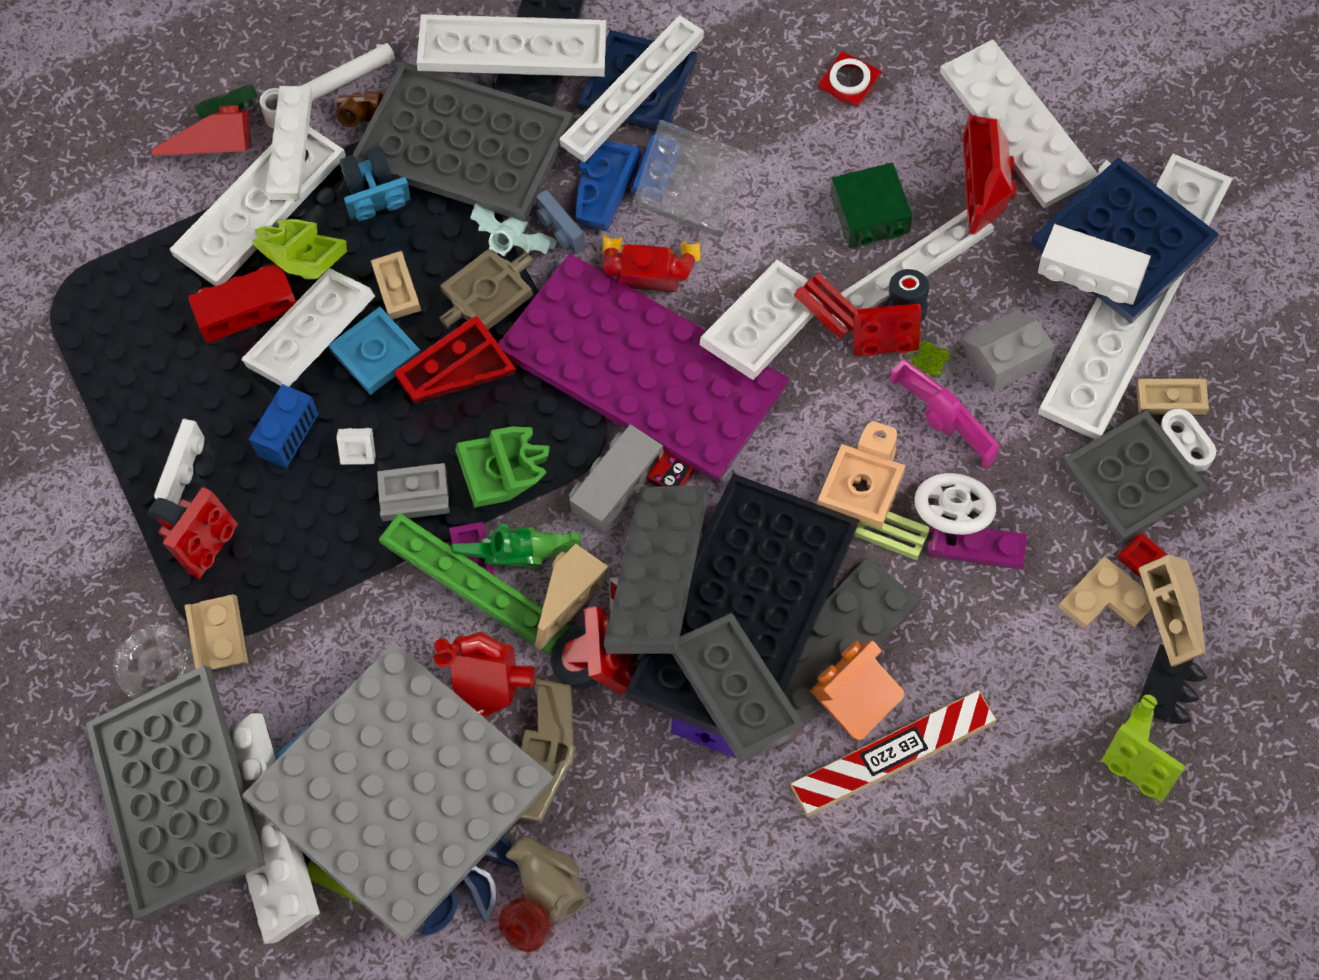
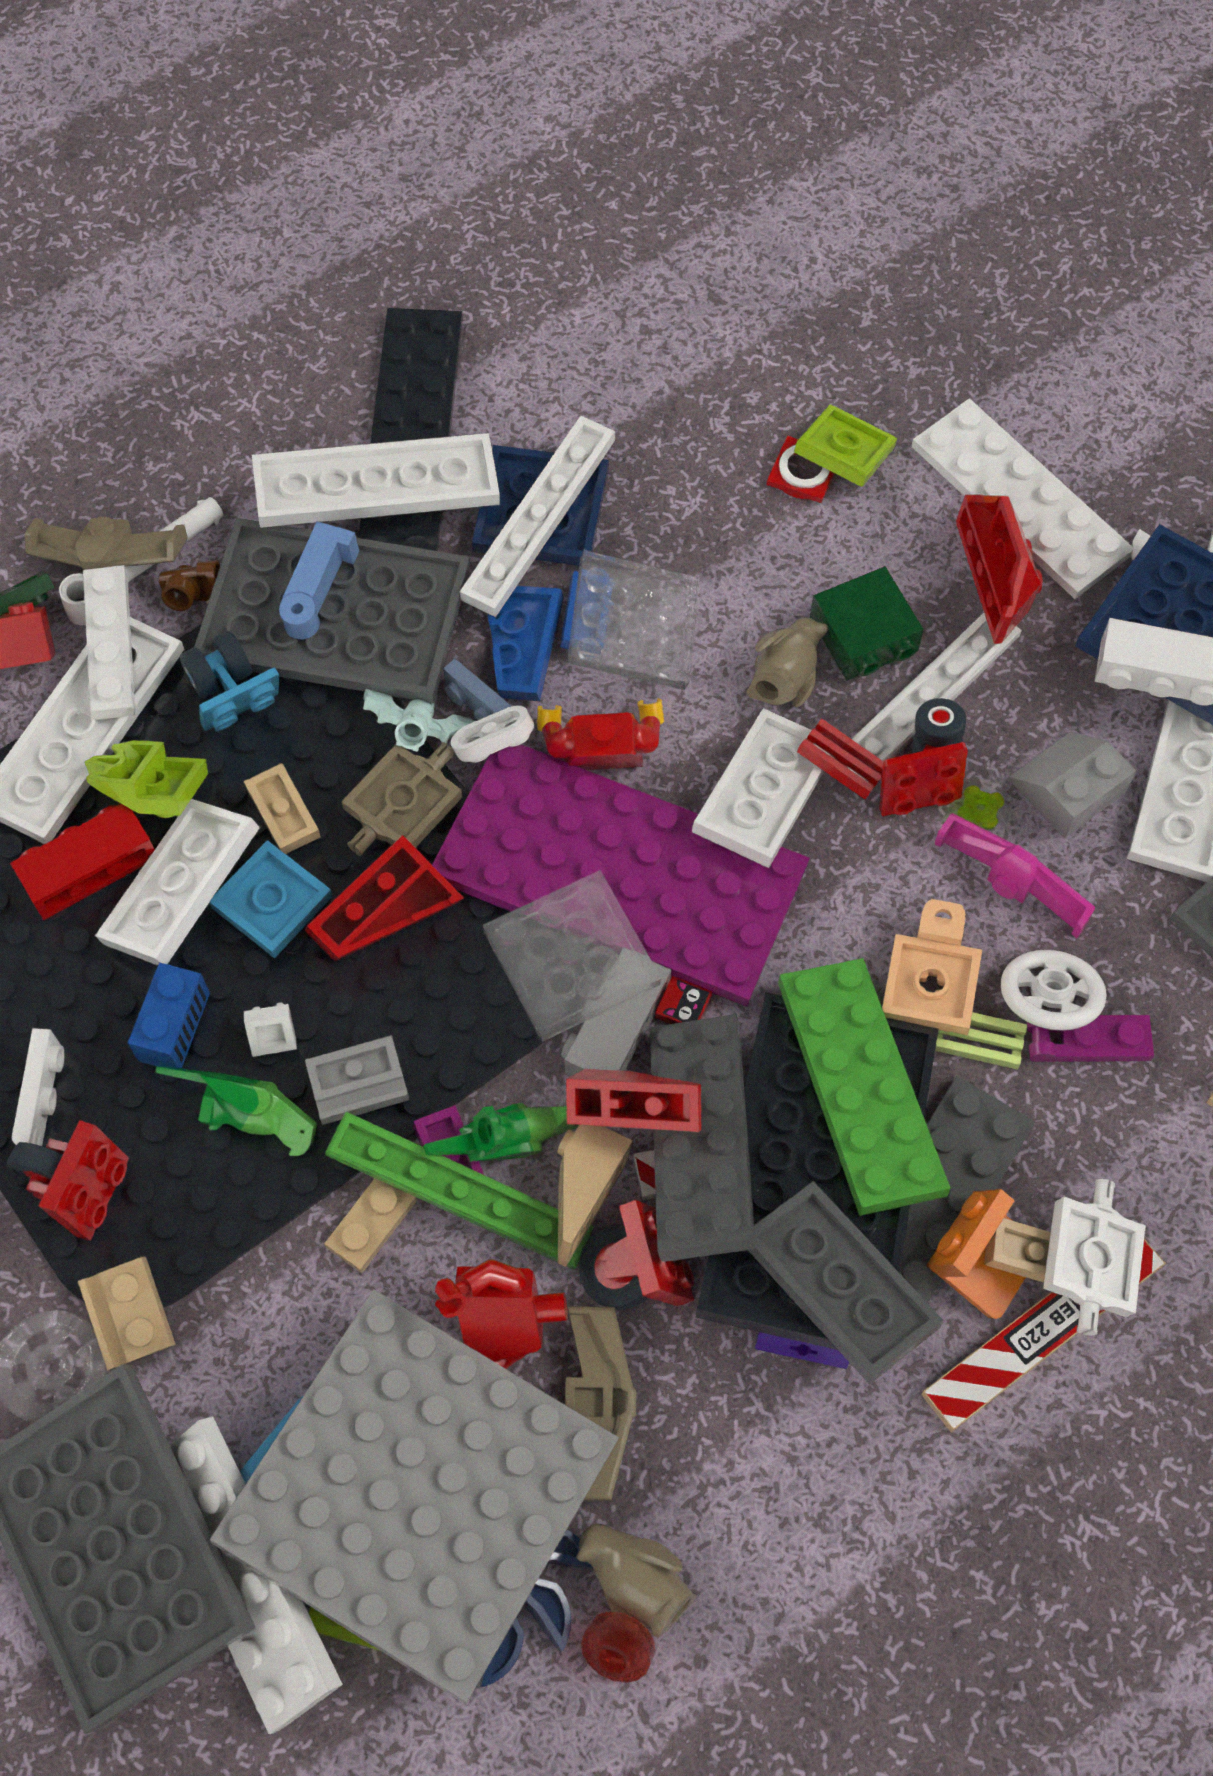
camera: 15 degrees left, 0 degrees up
(300, 68) = (103, 544): none -> dark tan plate
(331, 500) = (250, 1107): none -> animal
(405, 599) = (369, 1224): none -> tan plate
(450, 114) = (314, 577): none -> medium blue leg
(501, 464) = (465, 1026): bright green plate -> none
(562, 250) = (492, 733): none -> white plate
(589, 423) = (571, 955): none -> clear plate
(608, 534) = (632, 1101): none -> red slope
(789, 552) = (863, 1087): none -> bright green plate
(802, 227) = (787, 663): none -> dark tan animal
(885, 64) = (845, 445): none -> lime tile
(893, 694) = (1019, 1250): none -> tan plate
(939, 704) = (1095, 1257): none -> white plate

